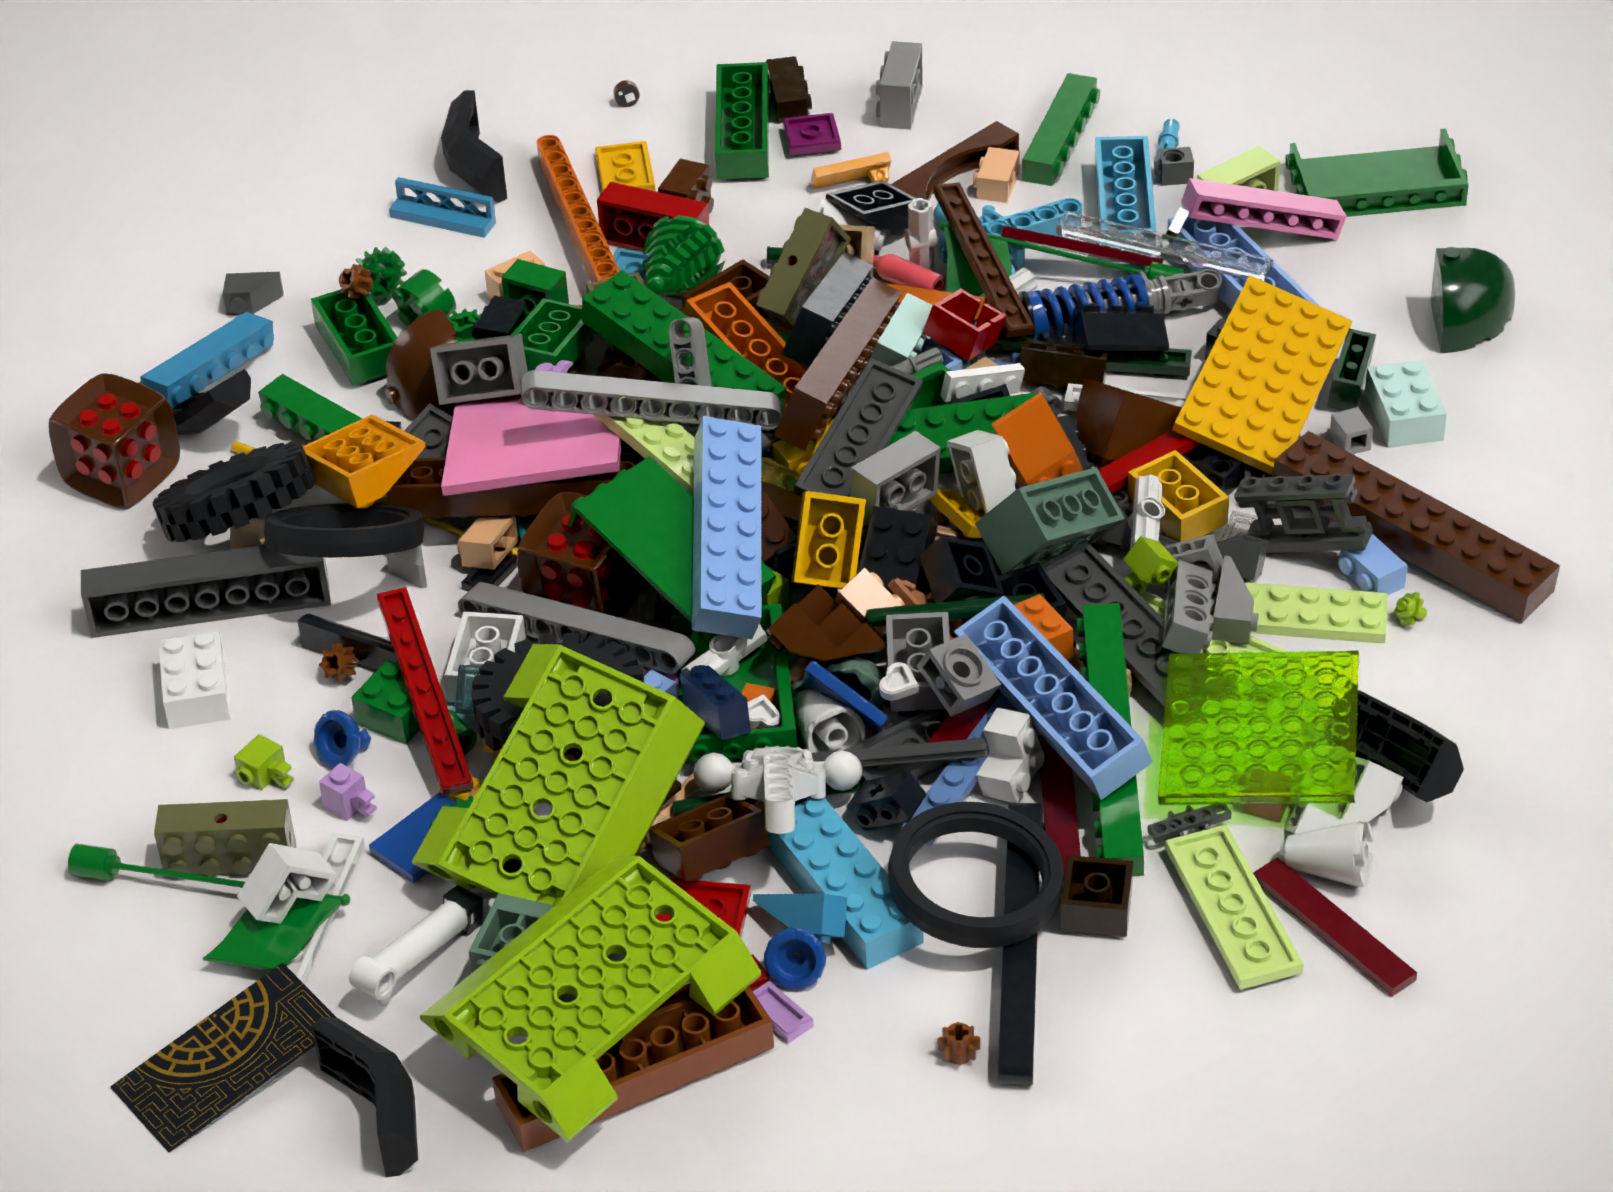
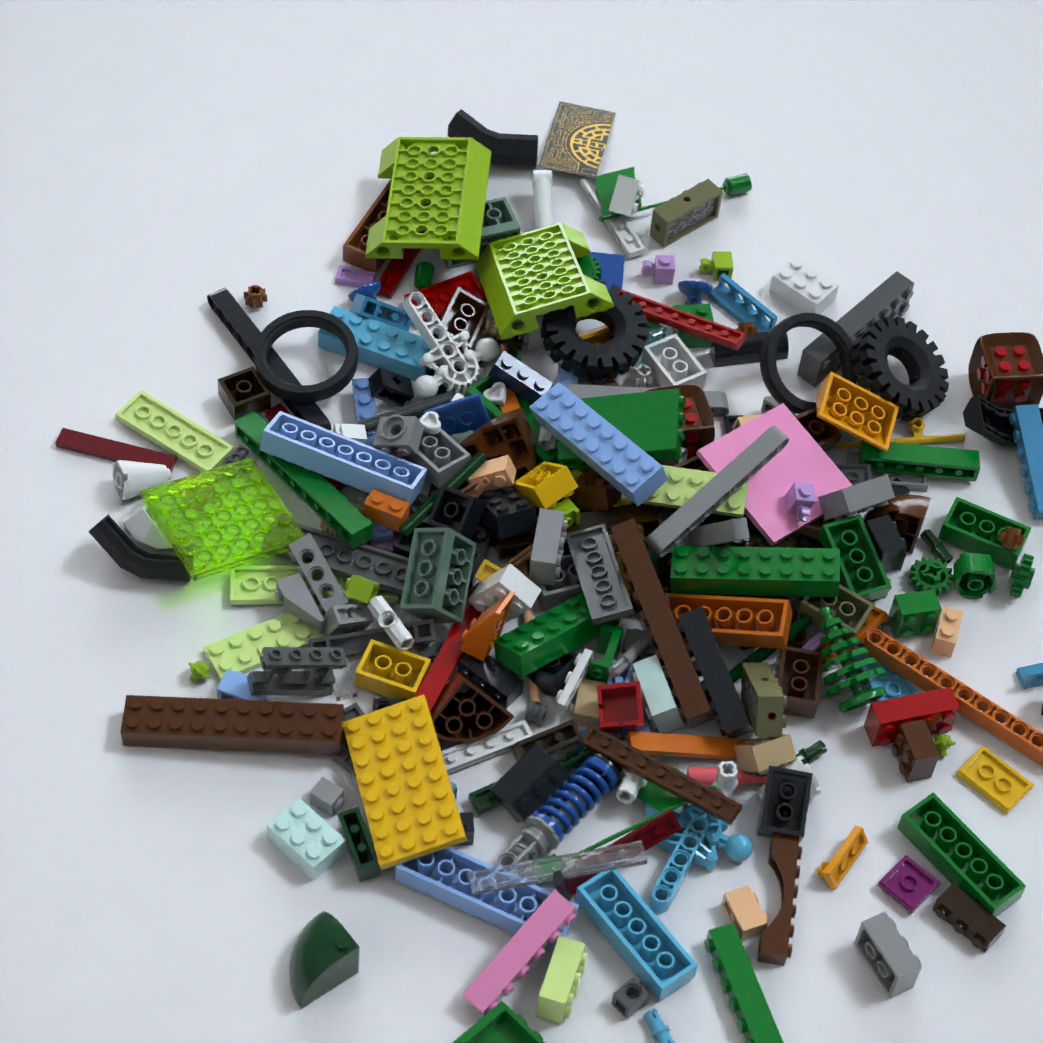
camera: 135 degrees right, 10 degrees up
(301, 699) = (741, 309): none -> dark azure fence

